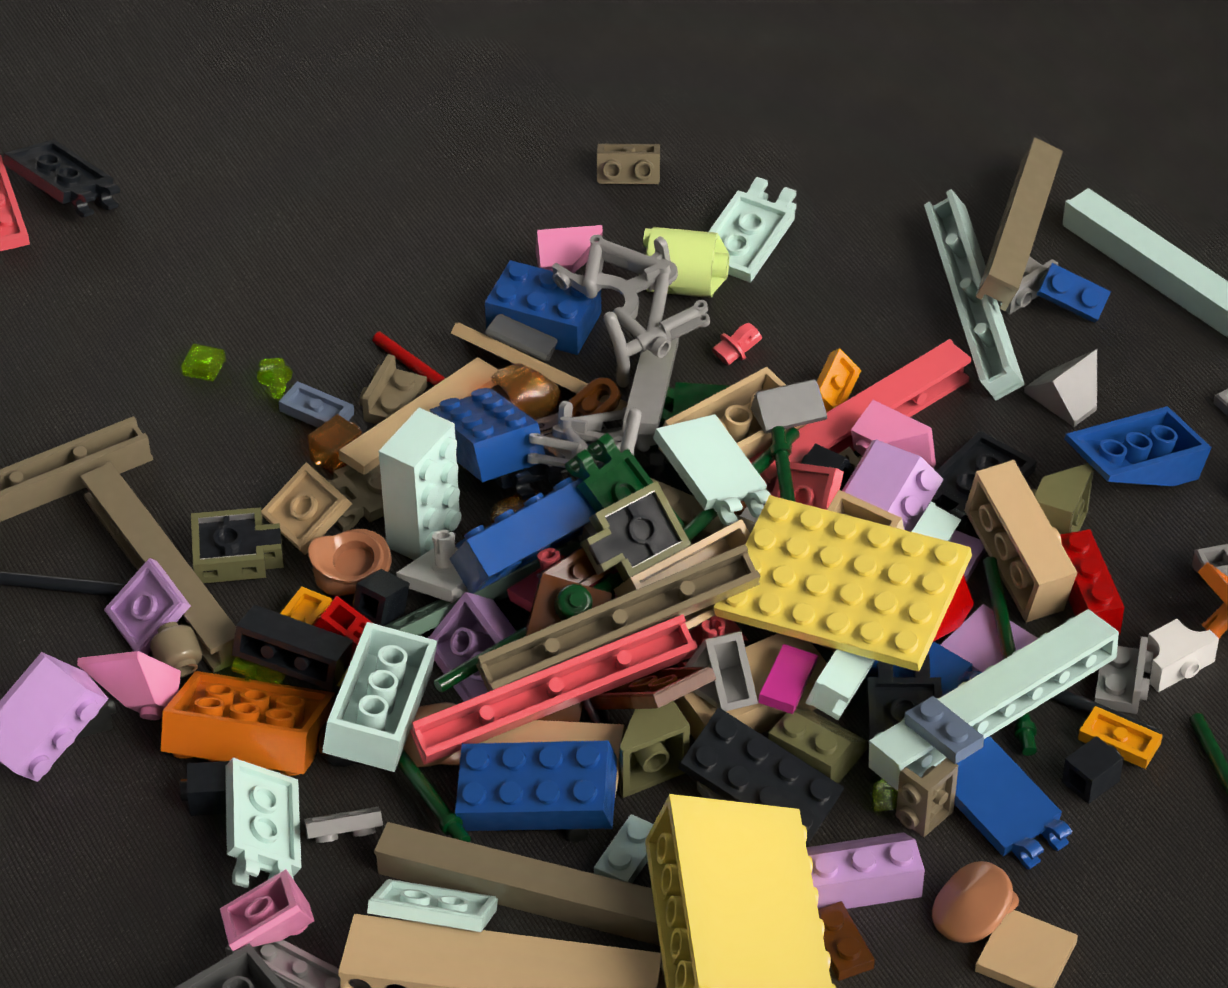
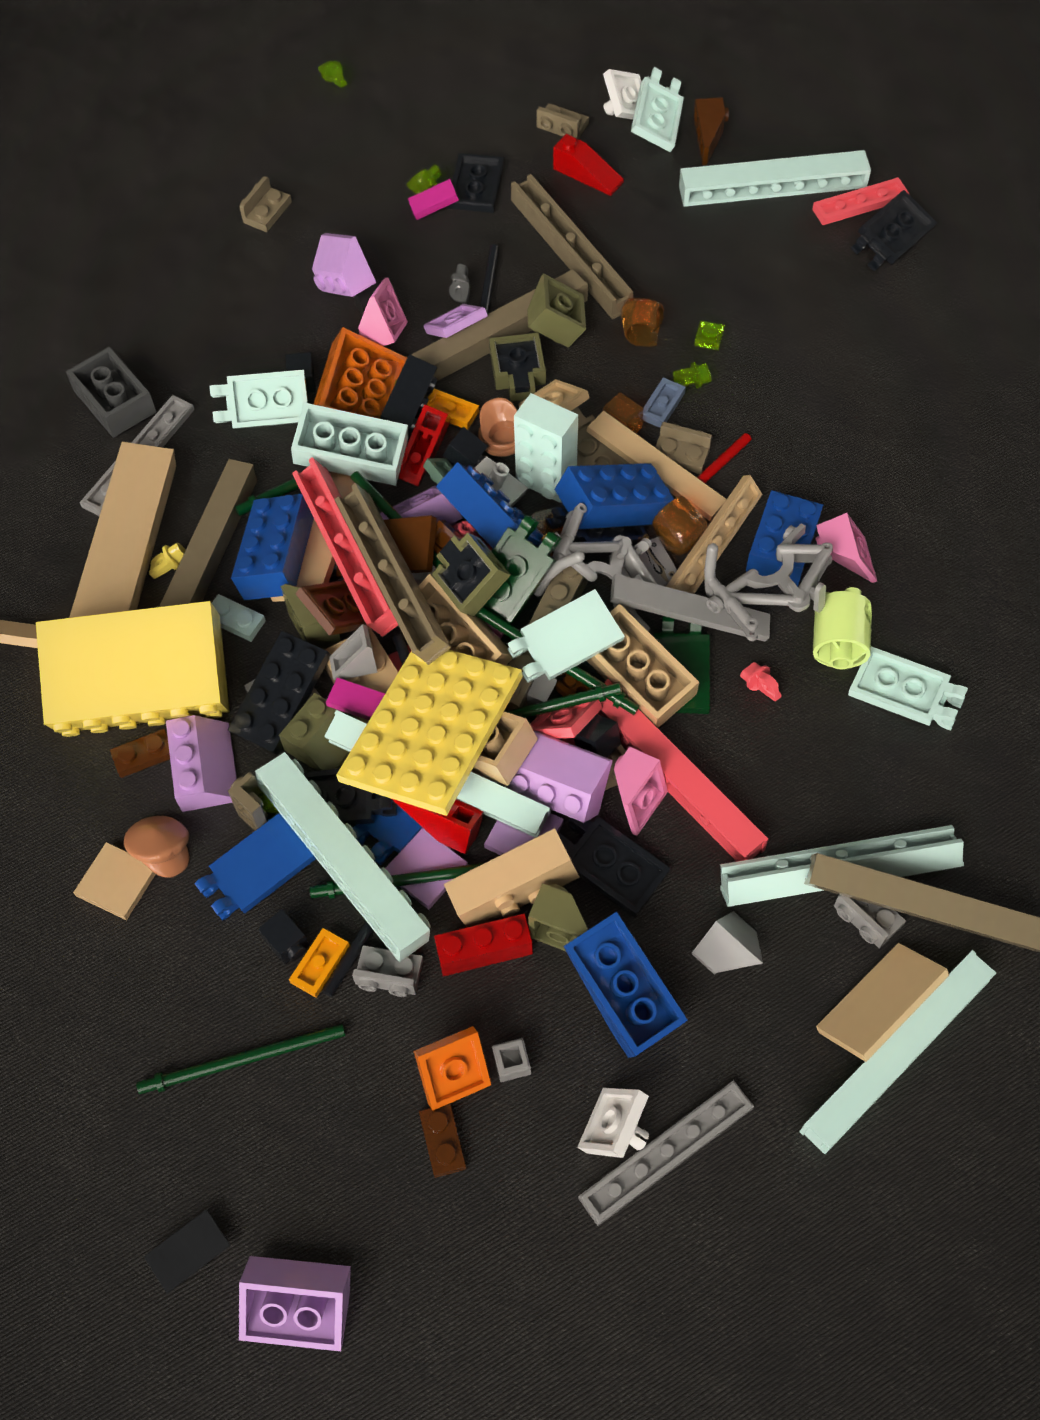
camera: 90 degrees right, 15 degrees up
(71, 610) = (460, 286): none -> dark grey piece
(161, 491) = (557, 311): none -> olive slope
(177, 414) = (642, 321): none -> clear orange piece
(177, 647) = (416, 337): dark tan head -> none
(267, 913) = (181, 406): bright pink slope -> none
(328, 827) = (266, 446): light grey plate -> none
(433, 905) = (183, 495): light aqua tile -> none
(522, 337) = (742, 523): dark grey slope -> none
(531, 922) = (167, 560): none -> light yellow piece
(572, 601) = (409, 541): dark green piece -> none
(587, 400) = (662, 567): reddish brown plate -> none
(628, 163) = (980, 594): dark tan bracket -> none
(789, 405) = (646, 696): slope -> none
(837, 379) = (717, 753): light orange plate -> none
(944, 729) = (285, 802): sand blue plate -> none
(1073, 293) = (851, 954): blue plate -> none
(1139, 282) = (882, 1001): none -> tan tile
(1179, 653) = (406, 1015): white brick -> none

